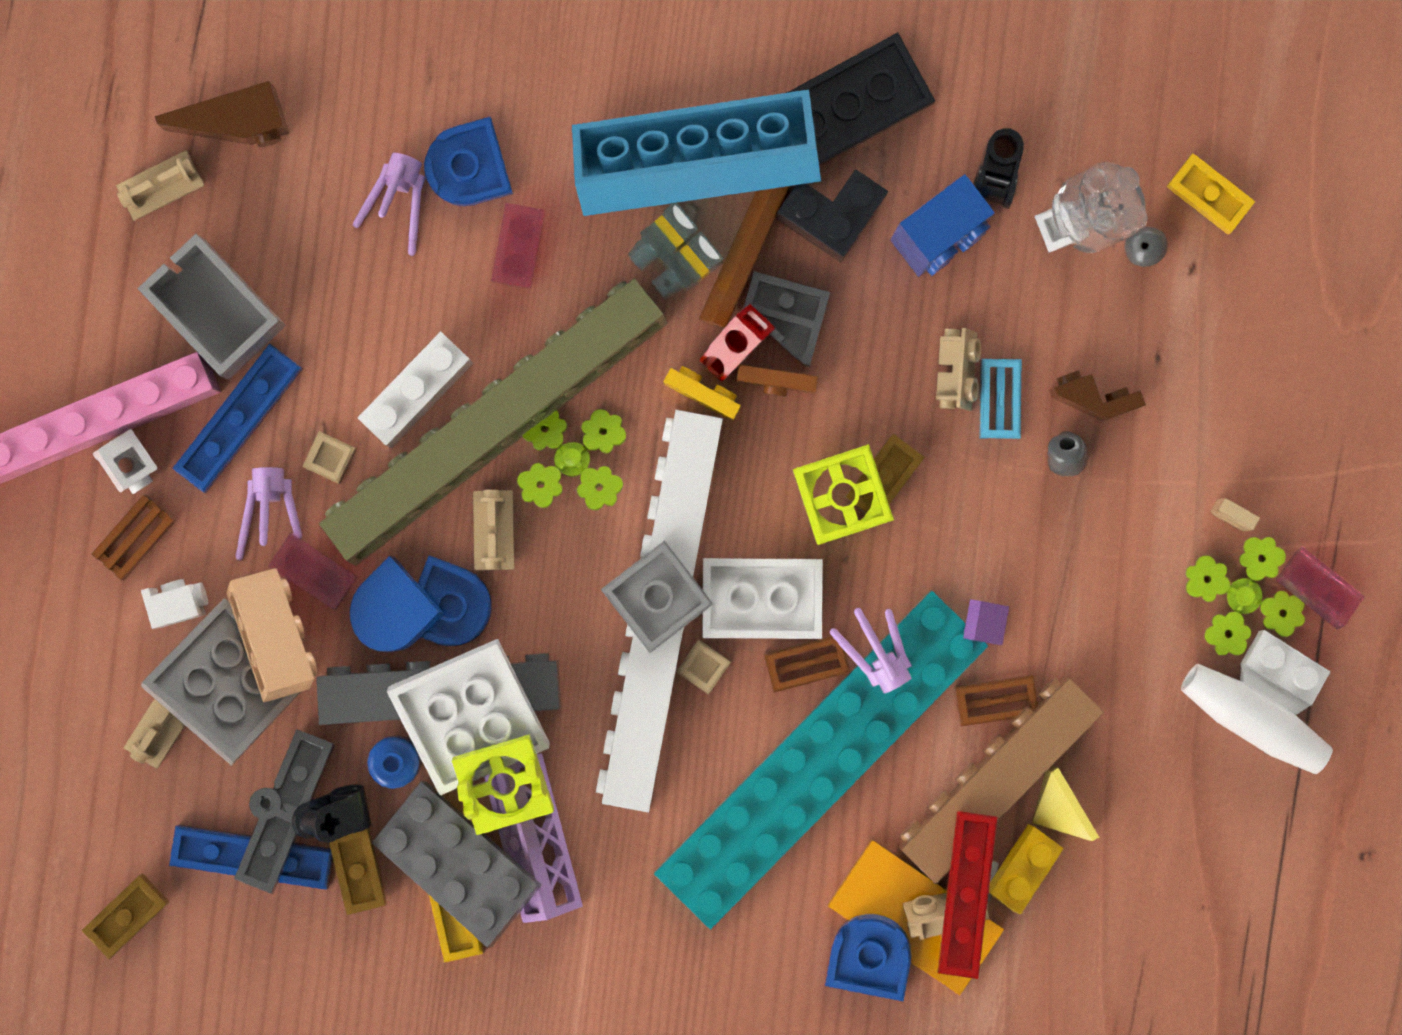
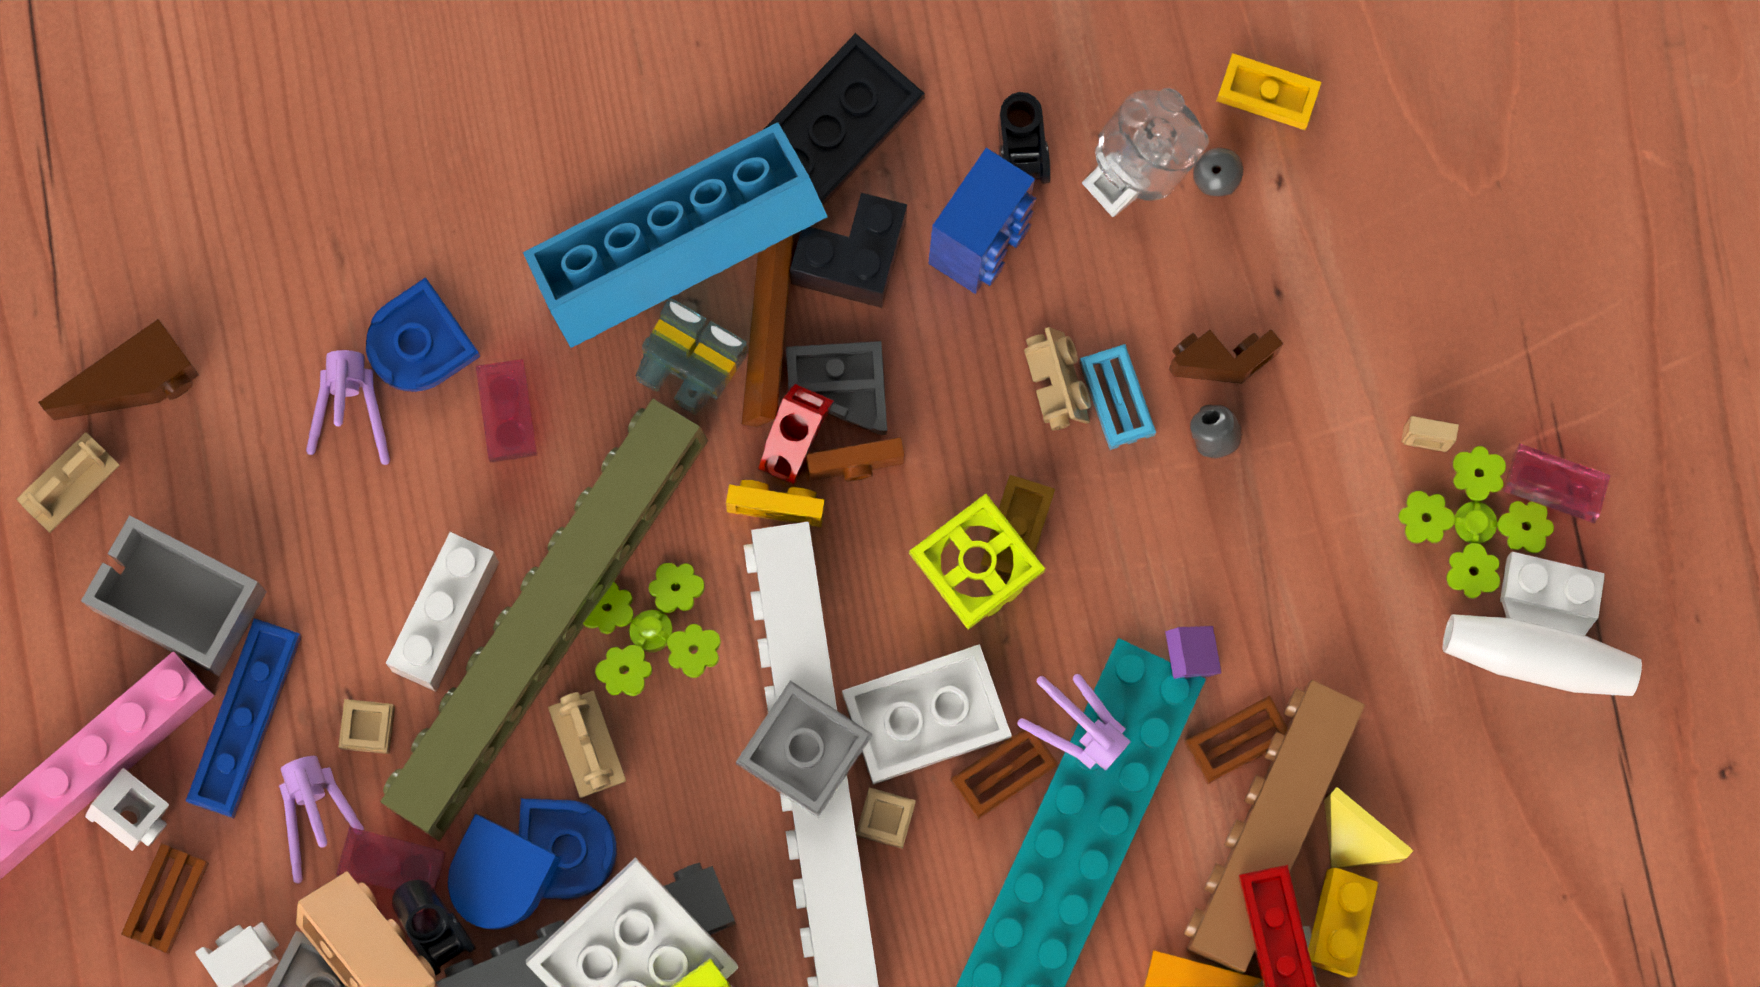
camera: 20 degrees left, 10 degrees down
(327, 630) = (434, 930): none -> black piece

